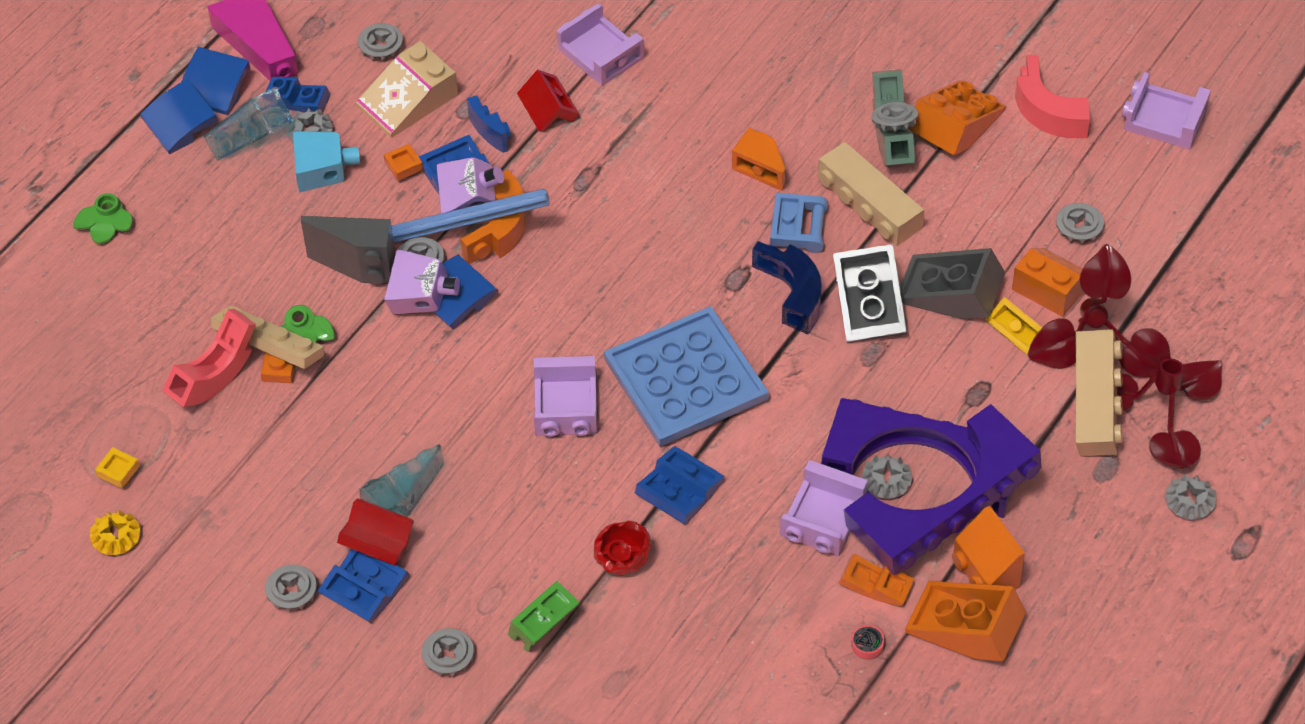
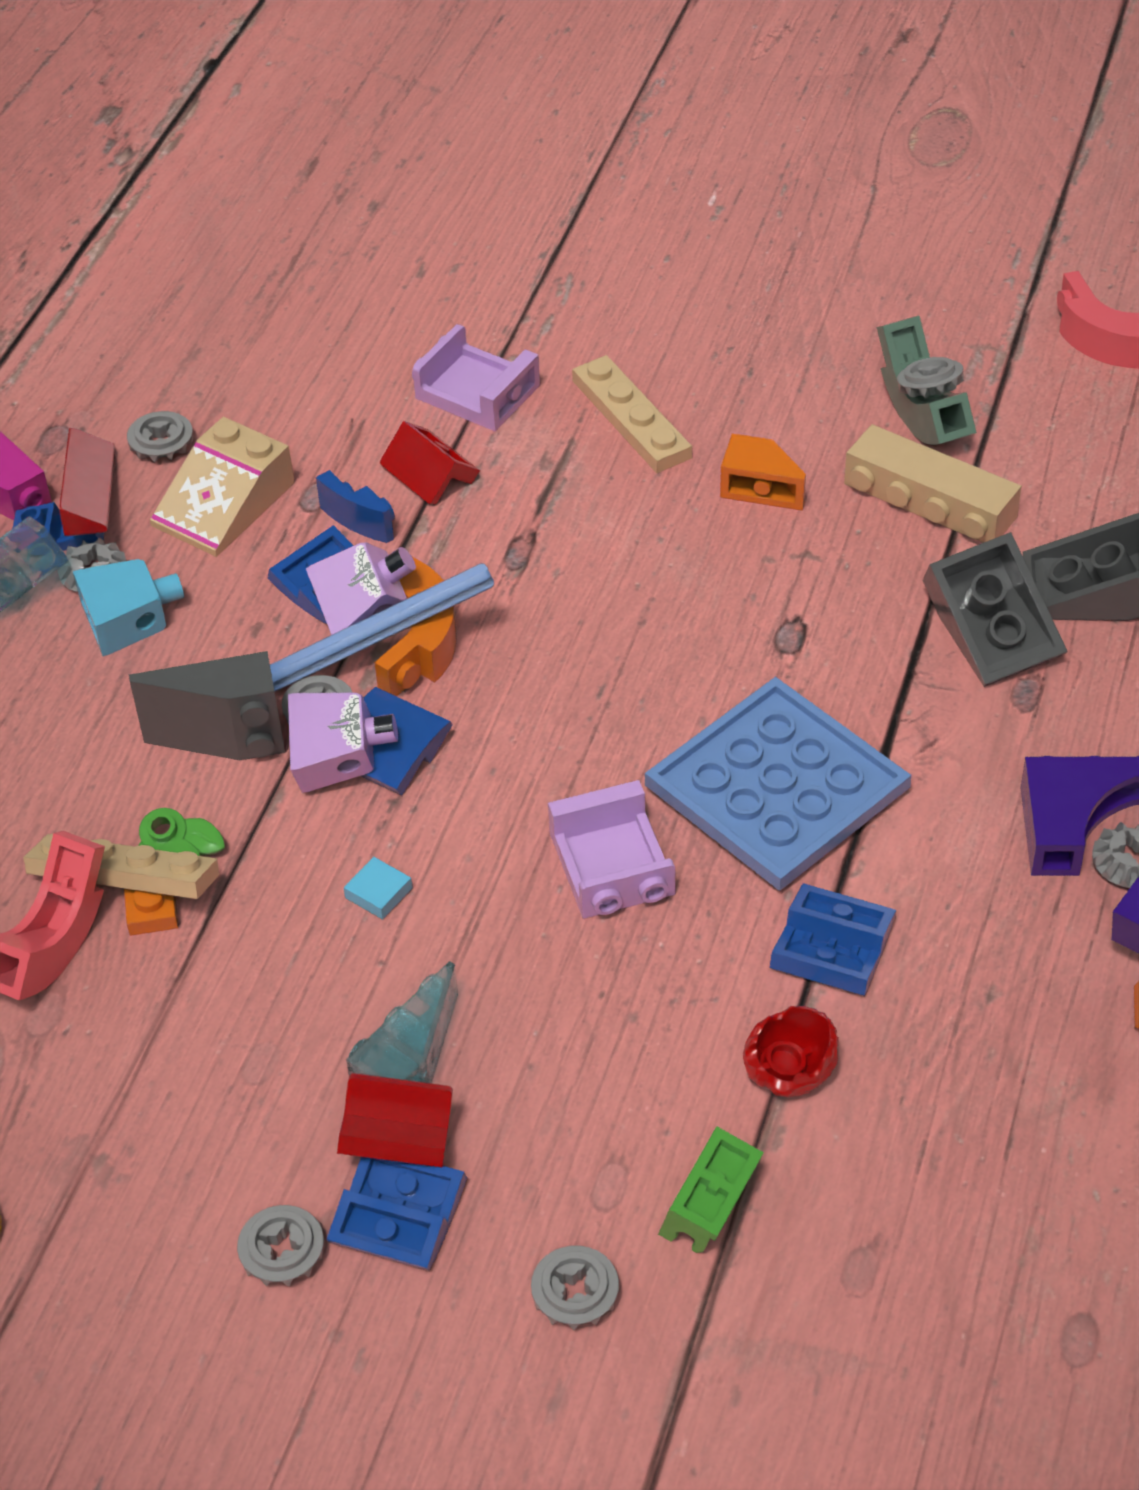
camera: 15 degrees left, 5 degrees down
(320, 68) = (86, 484): none -> slope
(403, 162) = (248, 582): orange plate -> none
(417, 386) = (378, 887): none -> medium azure tile
(695, 94) = (632, 414): none -> tan plate
(789, 218) = (834, 545): medium blue plate -> none
(801, 275) = (884, 611): clear blue arch -> none
(818, 511) = (1065, 921): lavender panel -> none
(955, 116) = (1002, 368): orange slope -> none

